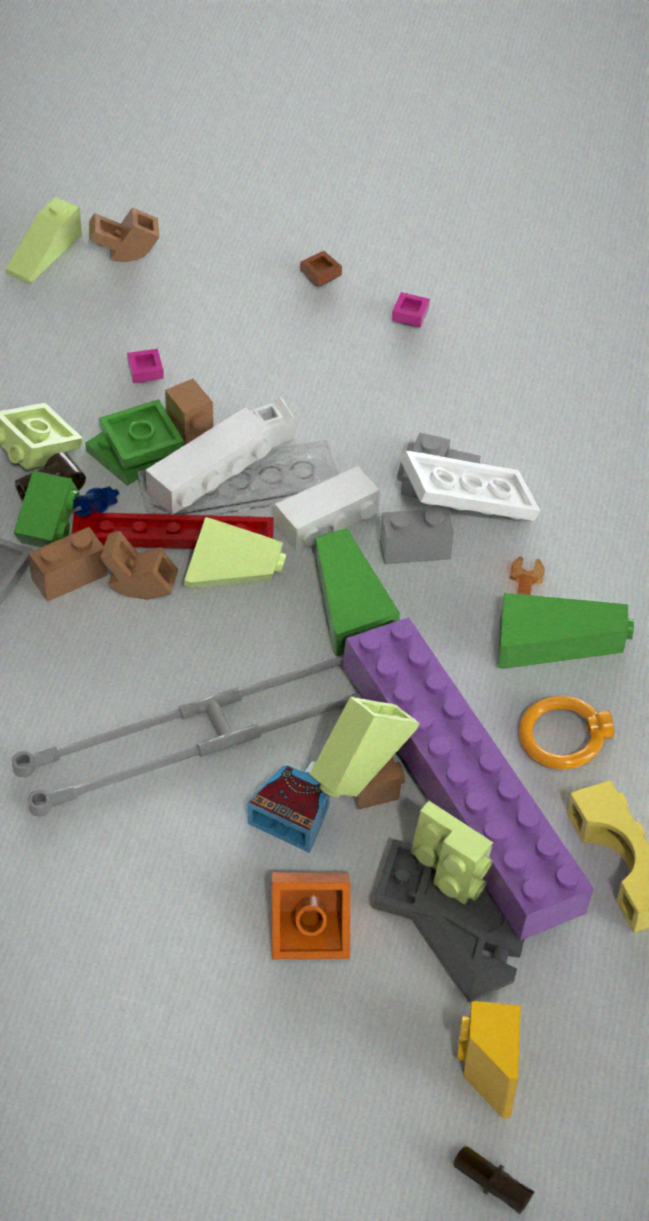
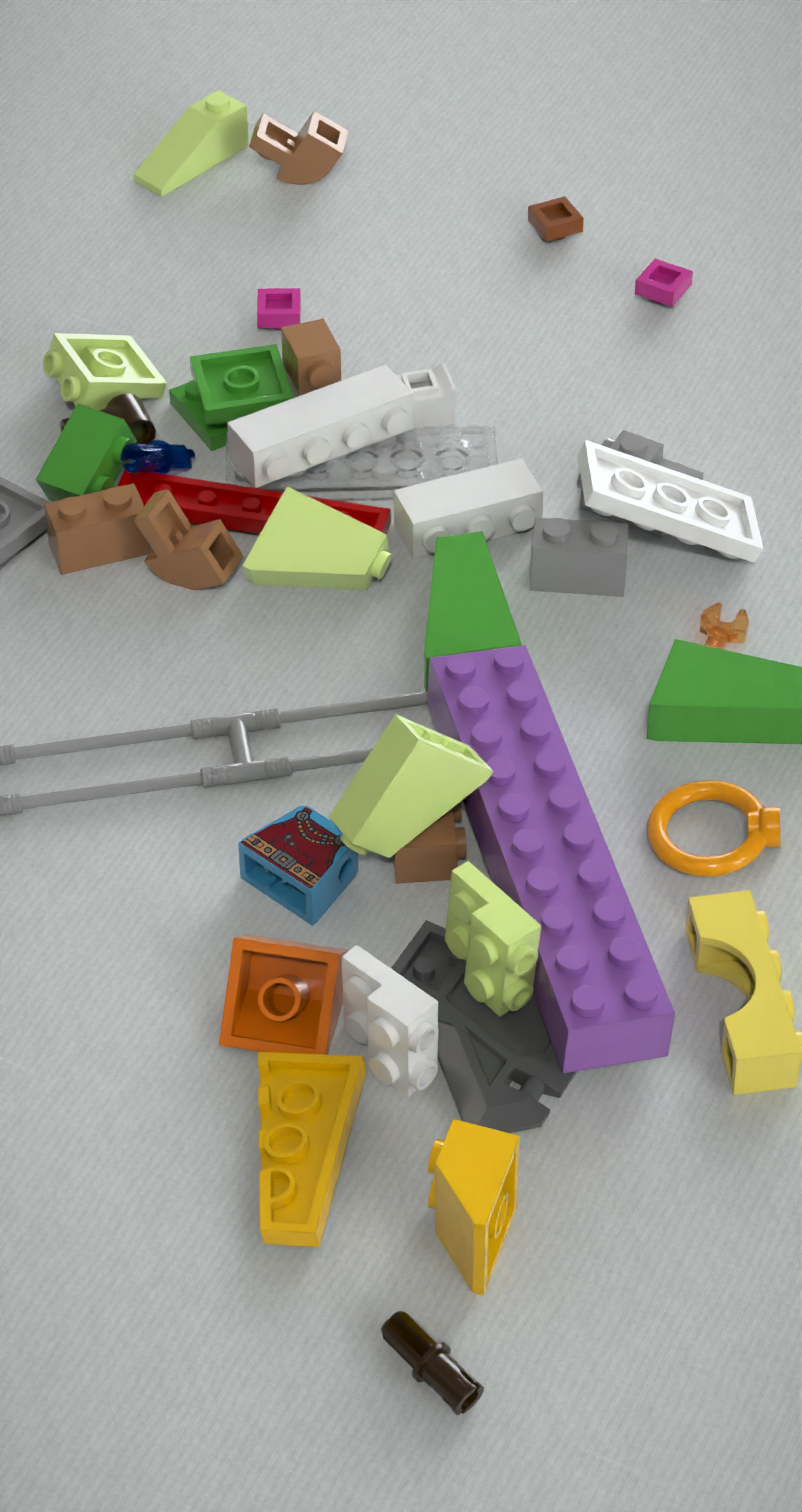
camera: 15 degrees right, 5 degrees down
(354, 1019) = (303, 1136): none -> yellow wing
(397, 923) = (392, 1019): none -> white plate

